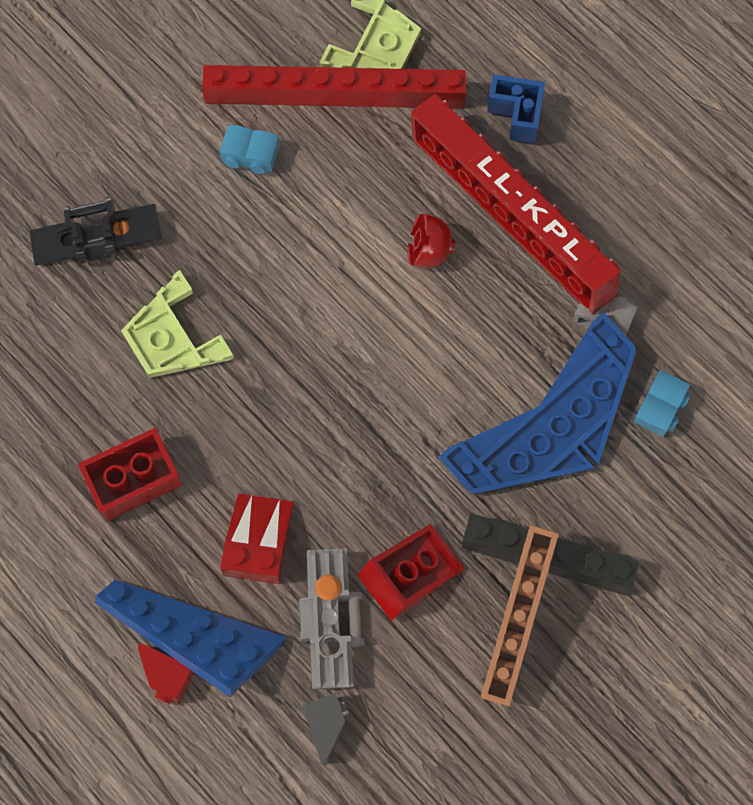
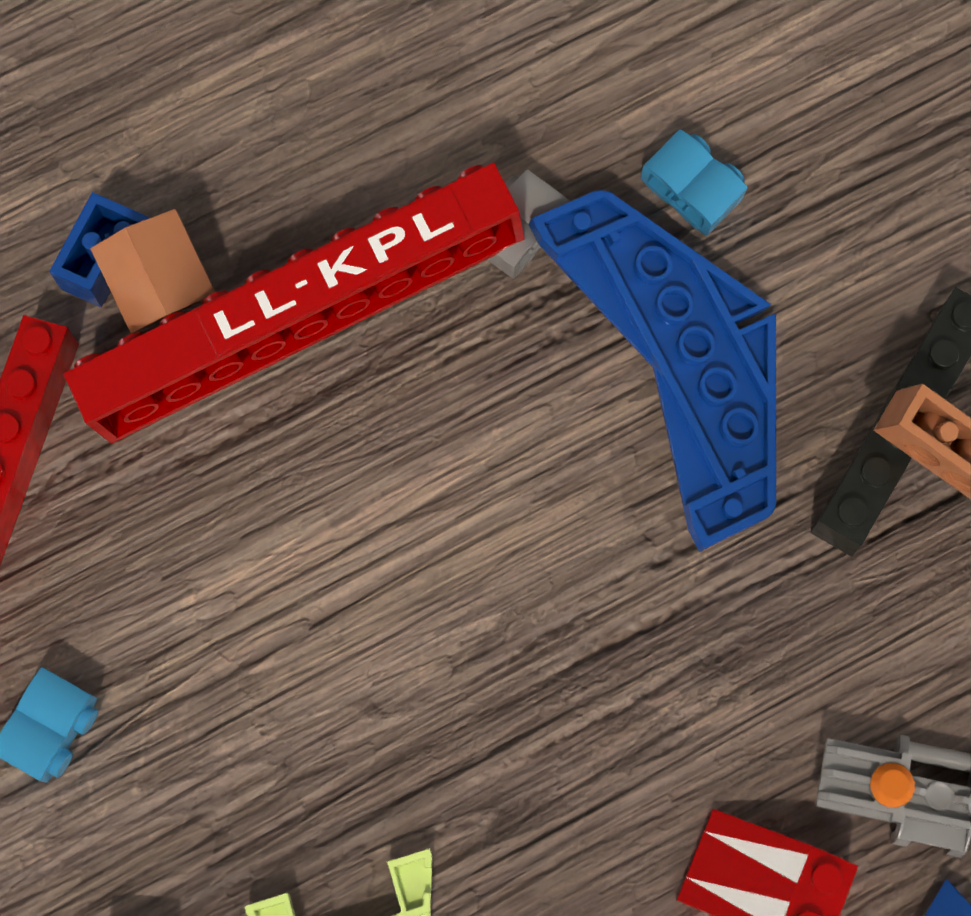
camera: 75 degrees left, 5 degrees up
(410, 571) = (884, 646): red slope -> none
(431, 242) = (319, 462): red cylinder -> none
(509, 124) = (152, 270): none -> nougat slope

